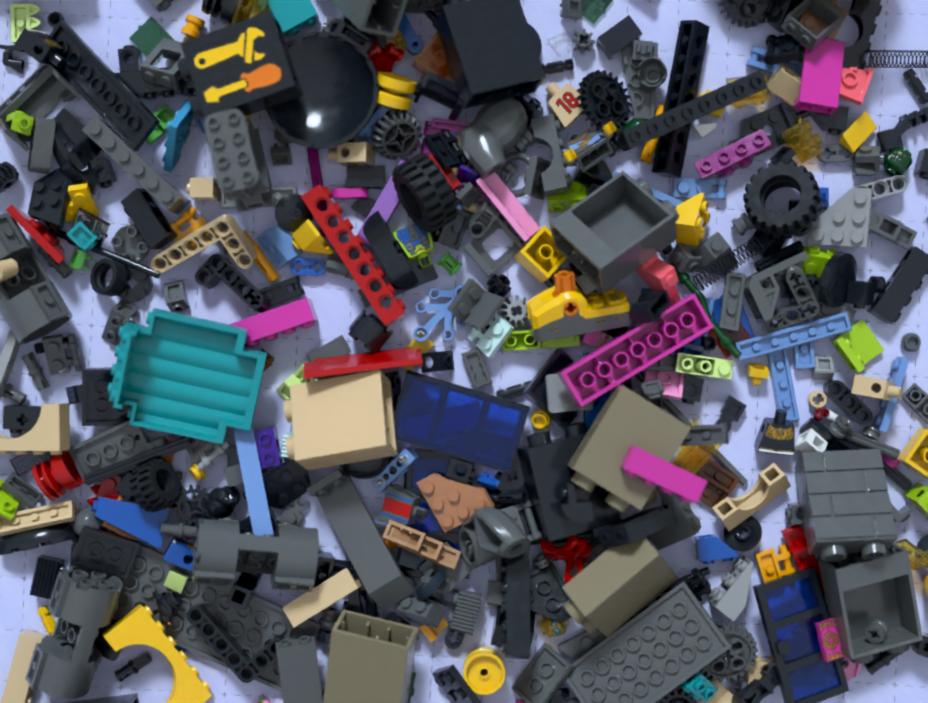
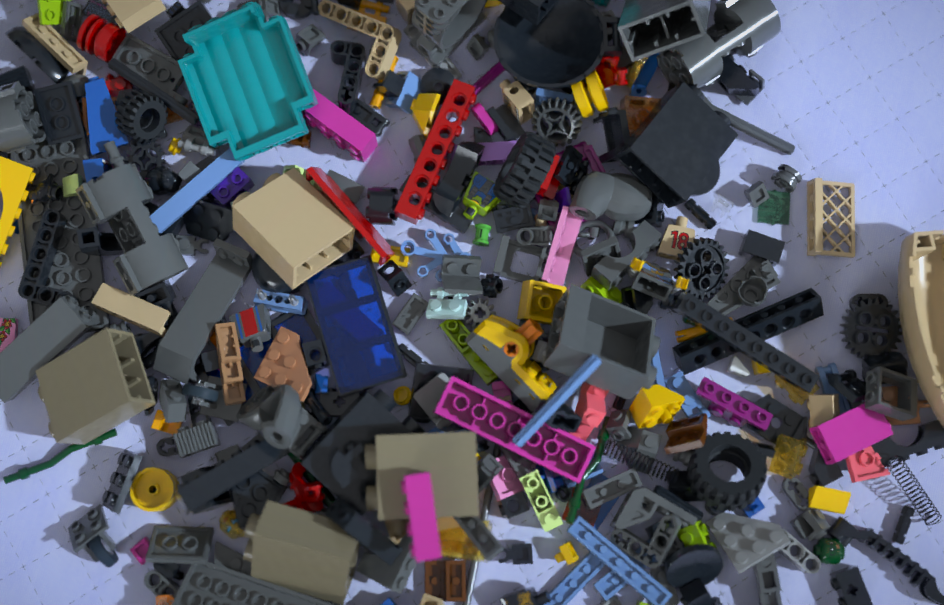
camera: 50 degrees right, 10 degrees down
(269, 253) = (391, 85): none -> black panel
(307, 261) = (399, 127): blue beam -> none
(583, 35) = (741, 219): dark grey gear -> none
(641, 301) = (557, 400): none -> medium blue axle
(730, 210) = (686, 434): none -> reddish brown slope

